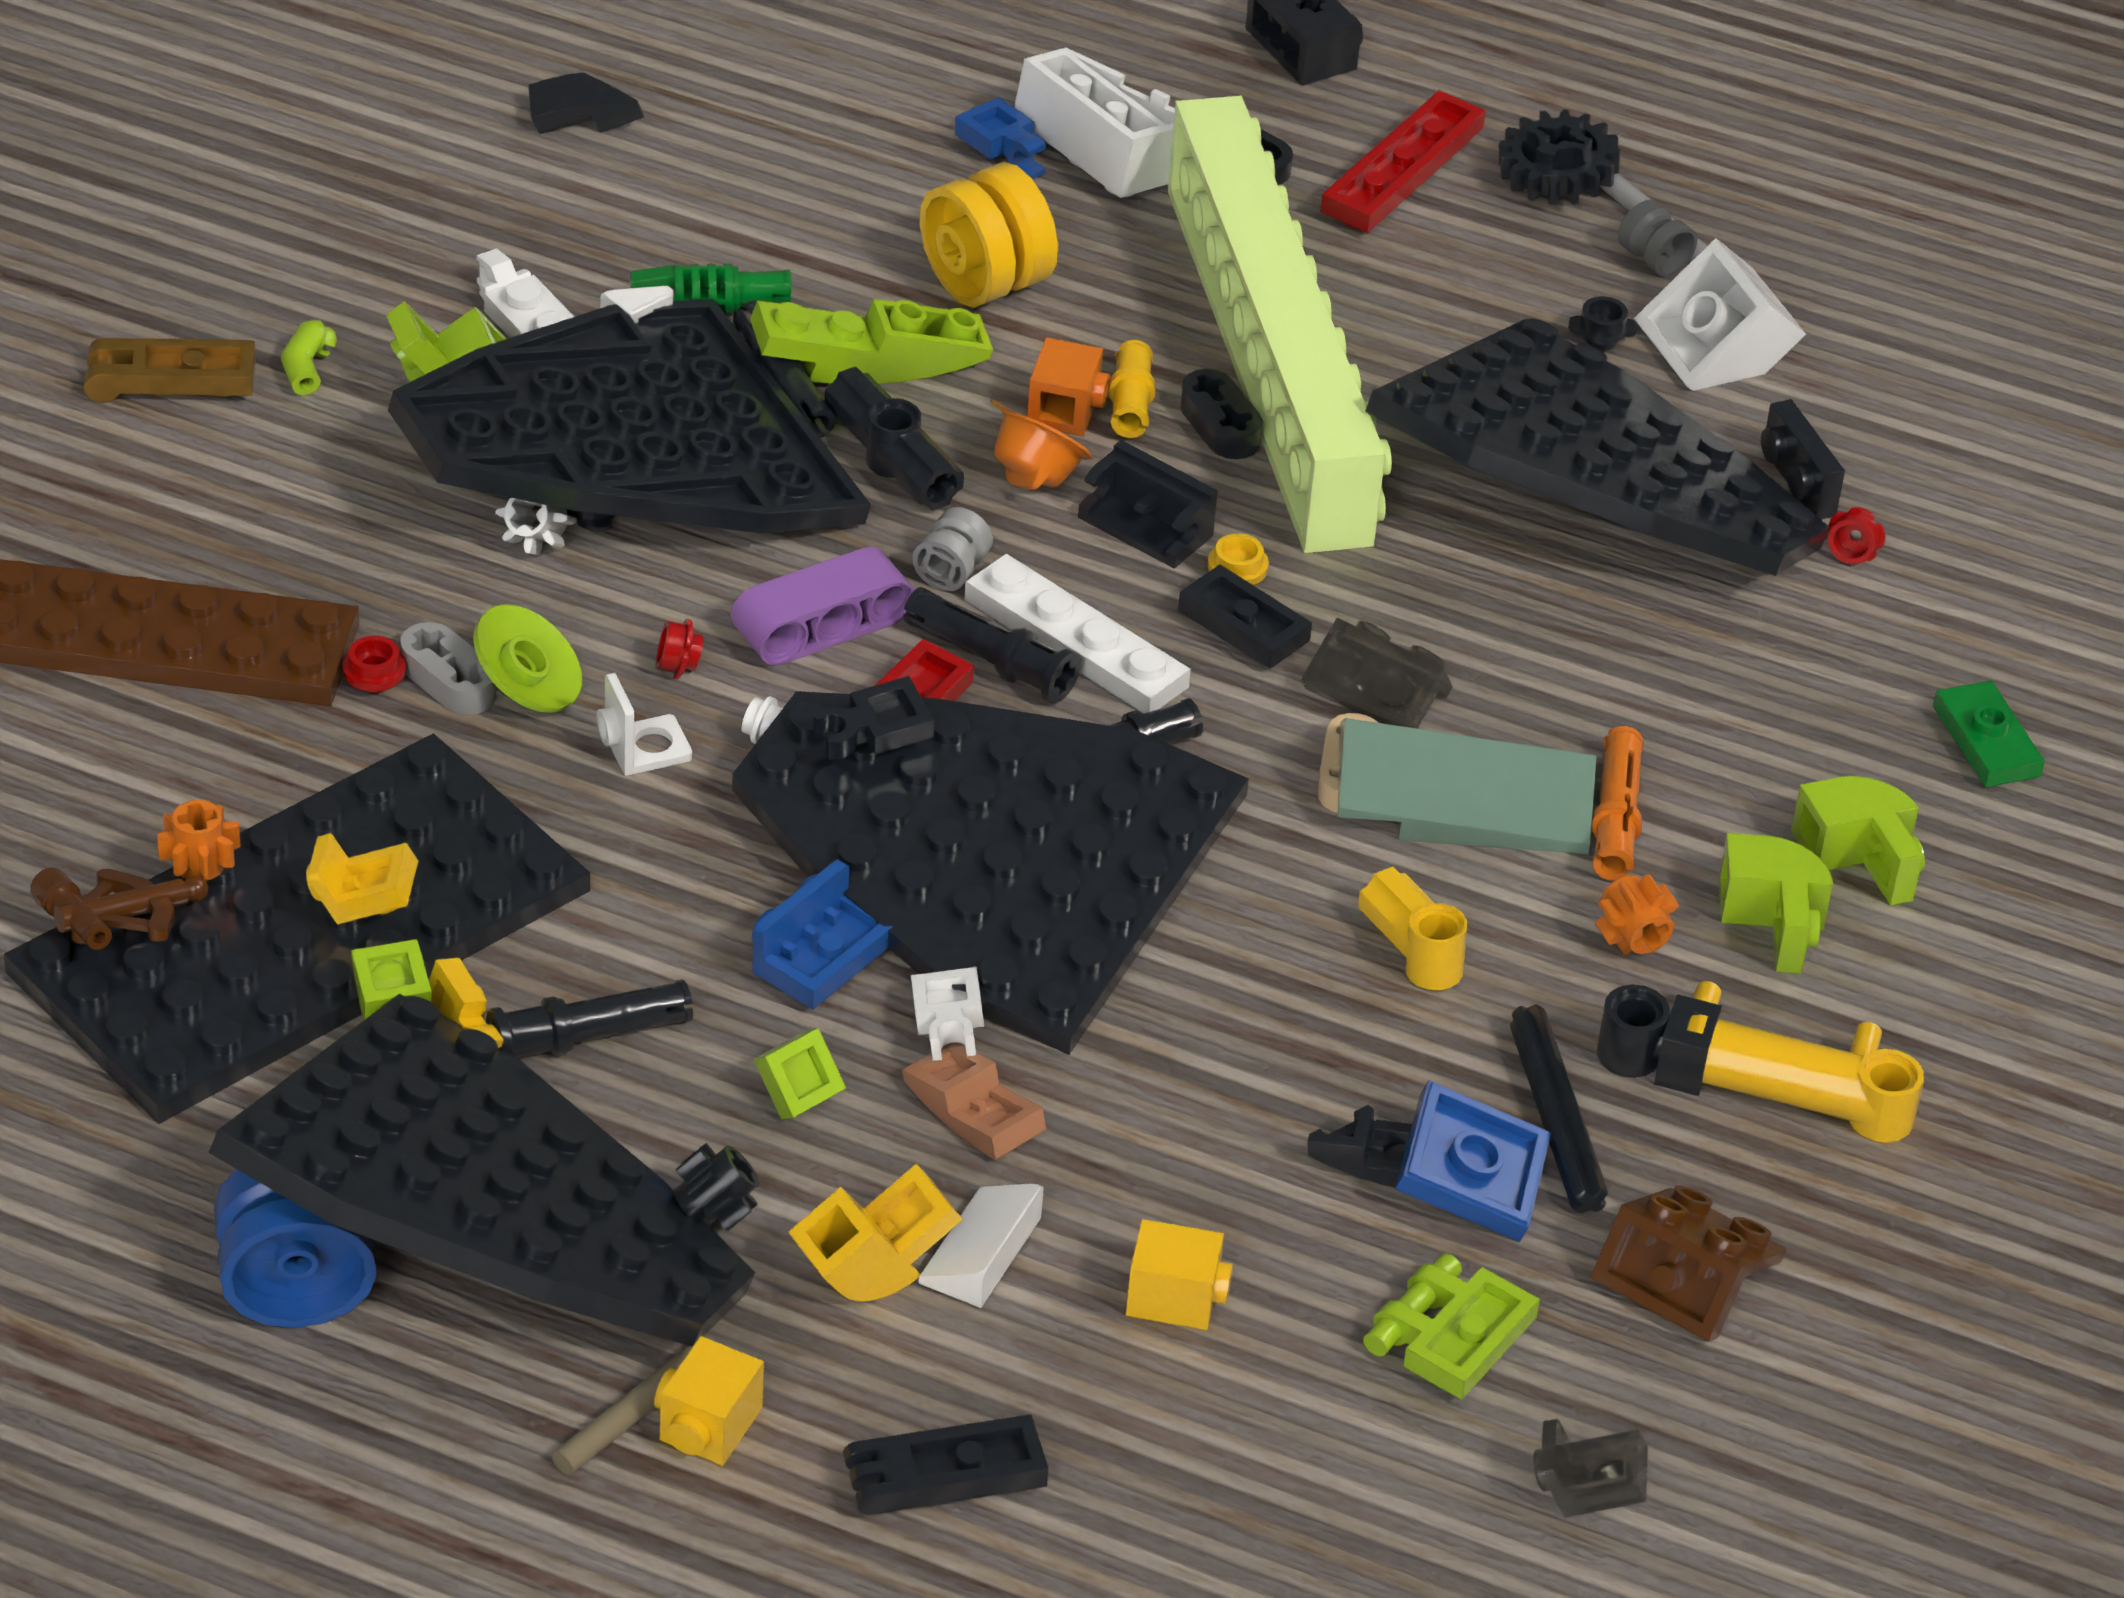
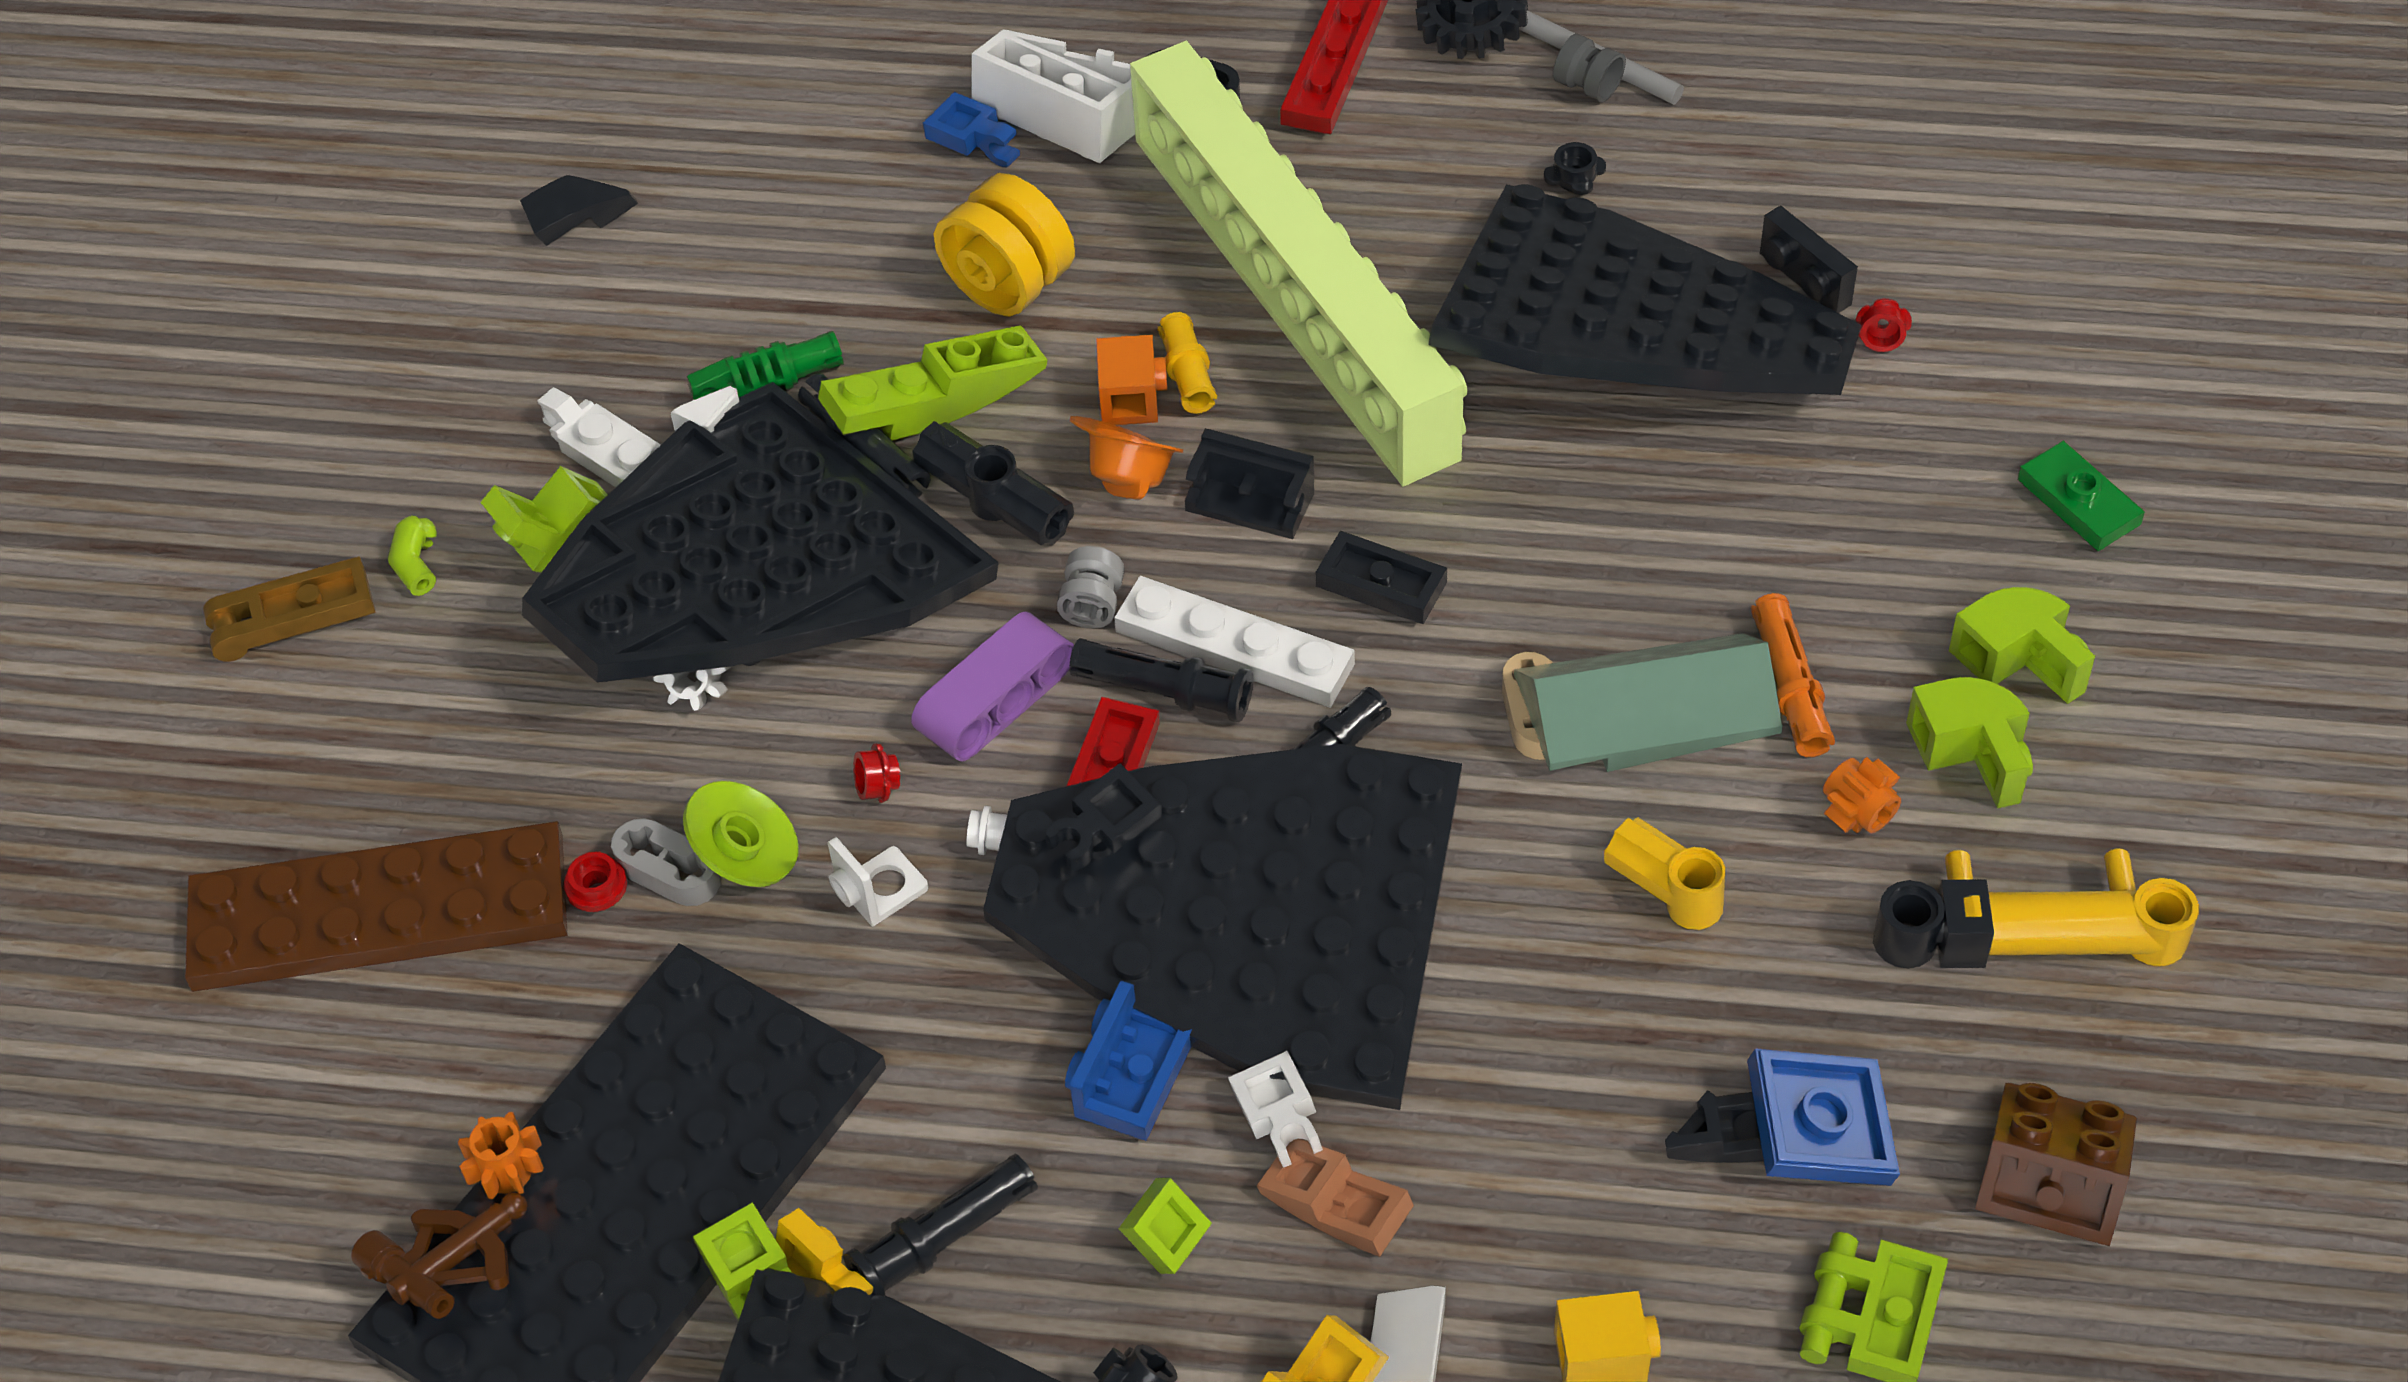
camera: 10 degrees left, 10 degrees up
(363, 883) = (676, 1151): yellow bracket -> none
(1232, 410) = (1268, 368): black beam -> none
(1240, 555) = (1353, 514): yellow plate -> none
(1374, 676) = (1525, 606): clear smoke bracket -> none
(1558, 1109) = (1872, 1029): black axle -> none
(1719, 321) = (1677, 139): white slope -> none

